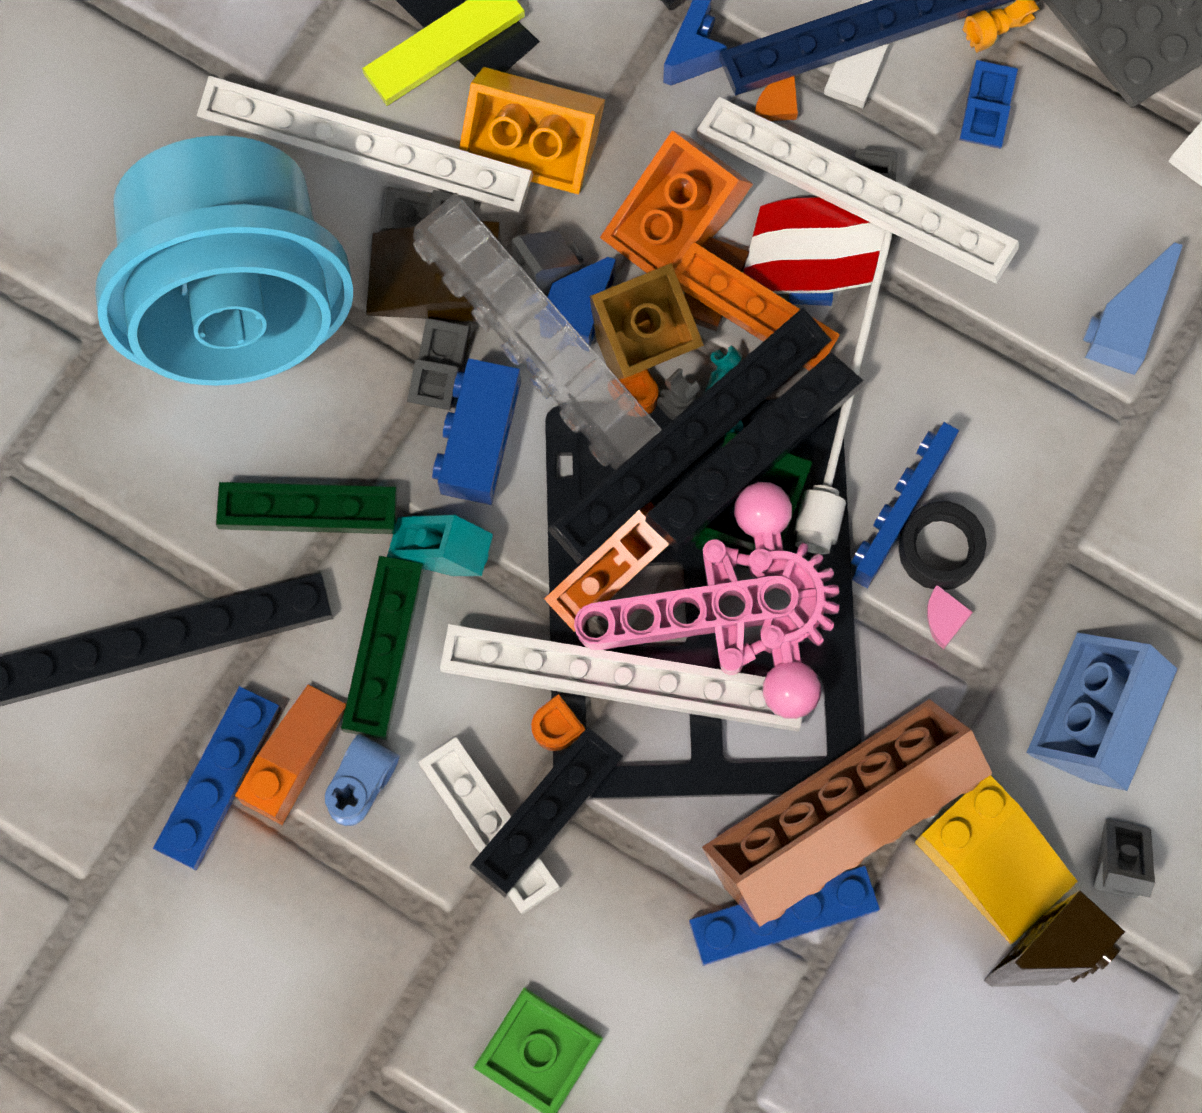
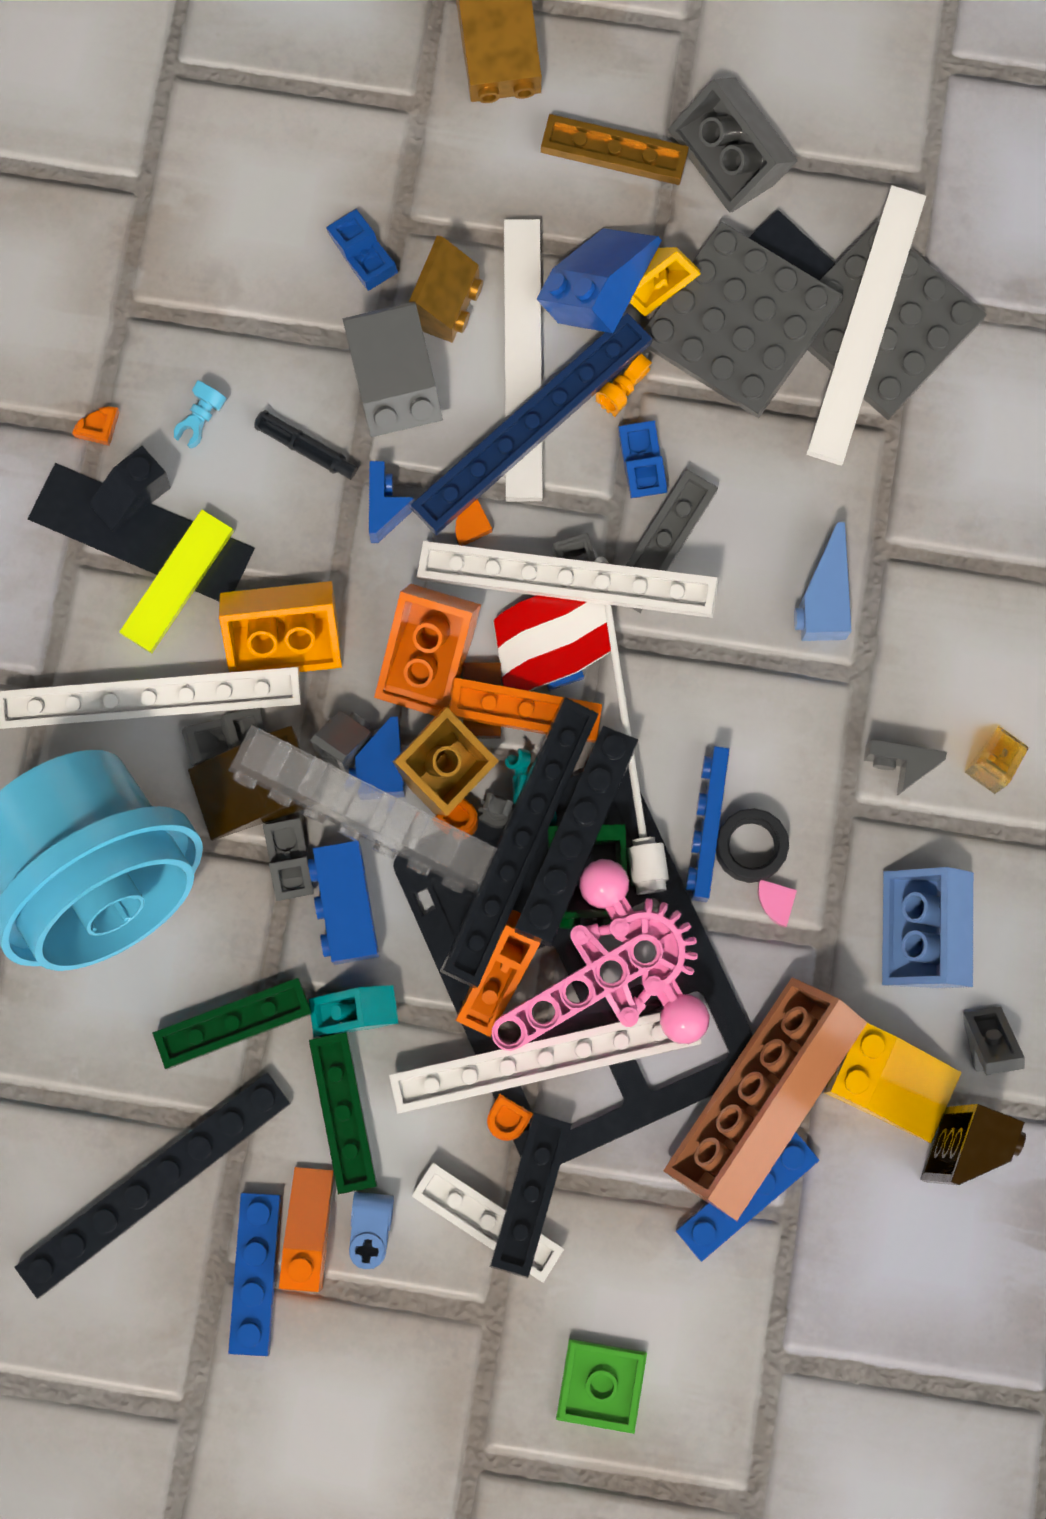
camera: 25 degrees left, 5 degrees up
(996, 181) = (673, 524): none -> dark grey plate
(1158, 525) = (912, 760): none -> dark grey slope

